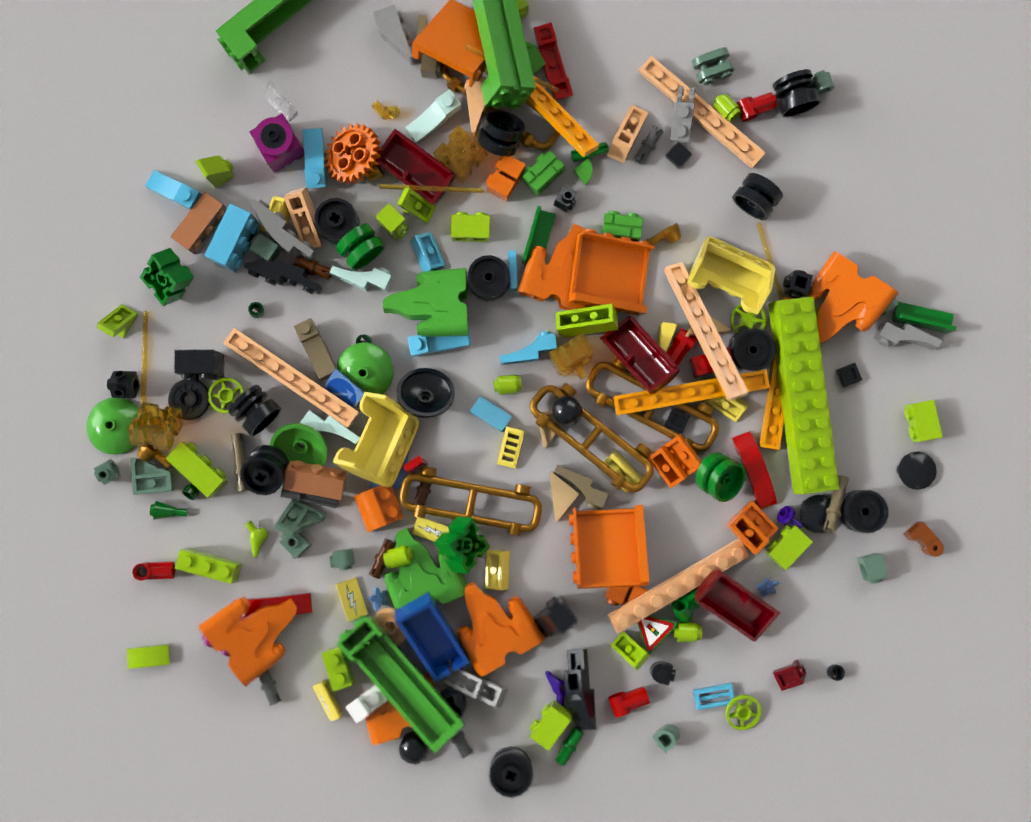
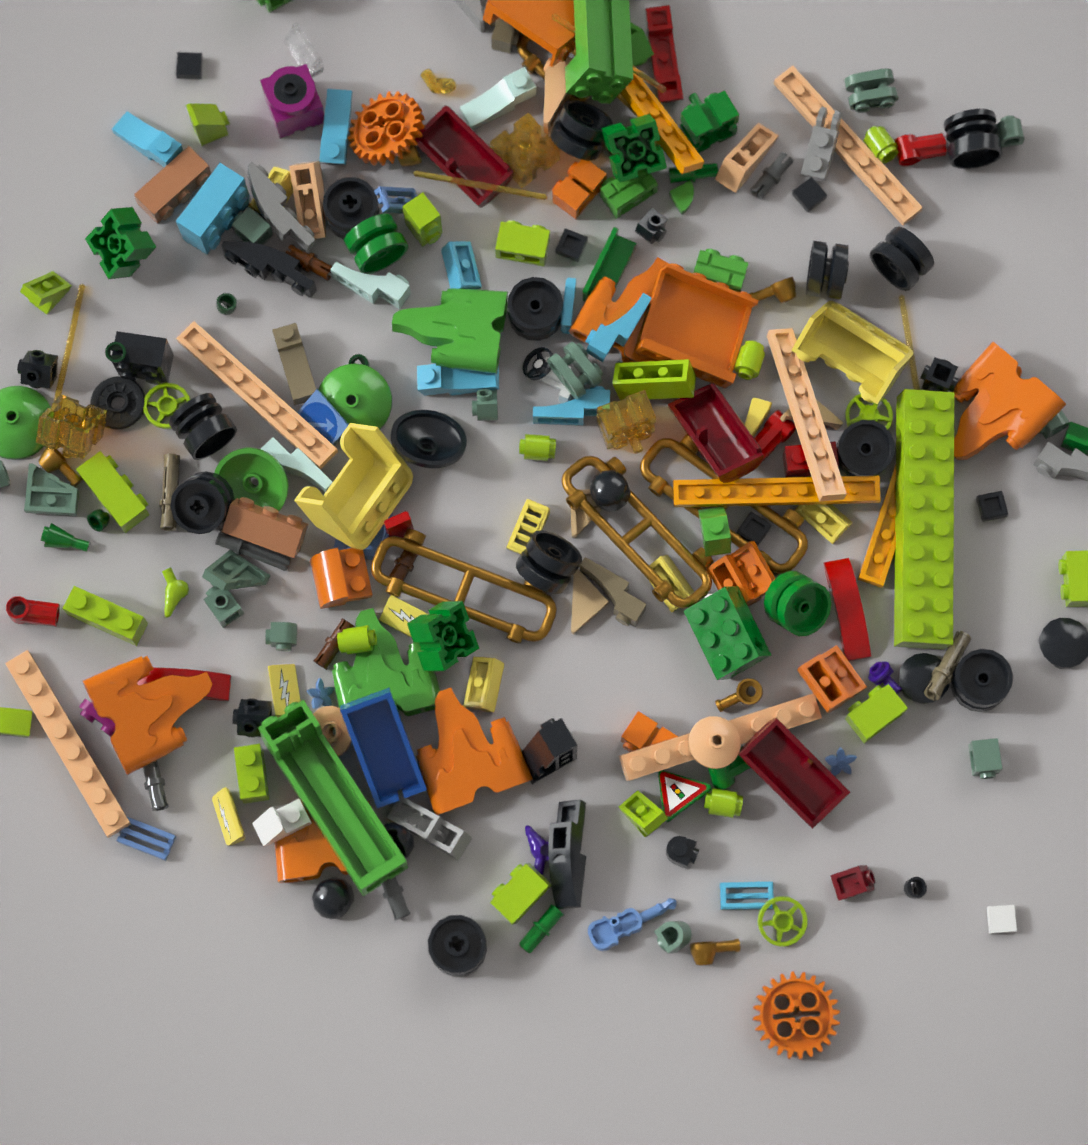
camera: 10 degrees right, 10 degrees down
(176, 373) = (115, 346): none -> dark green hinge
(195, 126) = (189, 65): none -> black tile
(199, 665) = (68, 744): none -> light nougat plate
(253, 723) = (167, 846): none -> medium blue tile
(331, 625) = (250, 716): none -> black brick
(362, 212) = (394, 205): none -> medium blue tile
(415, 205) = (456, 205): lime slope -> none
(463, 358) = (486, 405): none -> sand green plate
(491, 414) = (508, 482): medium azure slope -> none
(507, 223) = (571, 245): none -> black plate
(511, 324) = (545, 374): none -> piece
(525, 312) = (589, 371): none -> sand green brick
(531, 475) = (548, 562): none -> black wheel
(544, 142) = (634, 148): none -> green brick
(545, 296) = (619, 331): none -> medium azure slope
(597, 110) = (709, 121): none -> green brick
(609, 548) = (635, 675): orange panel -> none
(617, 741) = (607, 932): none -> medium blue piece
(623, 703) = (623, 882): red piece -> none
(650, 429) = (715, 531): none -> bright green slope
(654, 292) = (750, 360): none -> lime brick
(667, 593) = (702, 744): none -> light nougat dish
(671, 506) = (727, 632): none -> green piece
(688, 549) = (741, 695): none -> pearl gold bar
(690, 742) = (704, 952): none -> pearl gold bar
(702, 214) = (829, 270): none -> black wheel
(767, 798) = (793, 990): none -> orange gear
(900, 684) = (1001, 919): none -> white tile
(926, 538) = (1063, 732): dark orange leg -> none

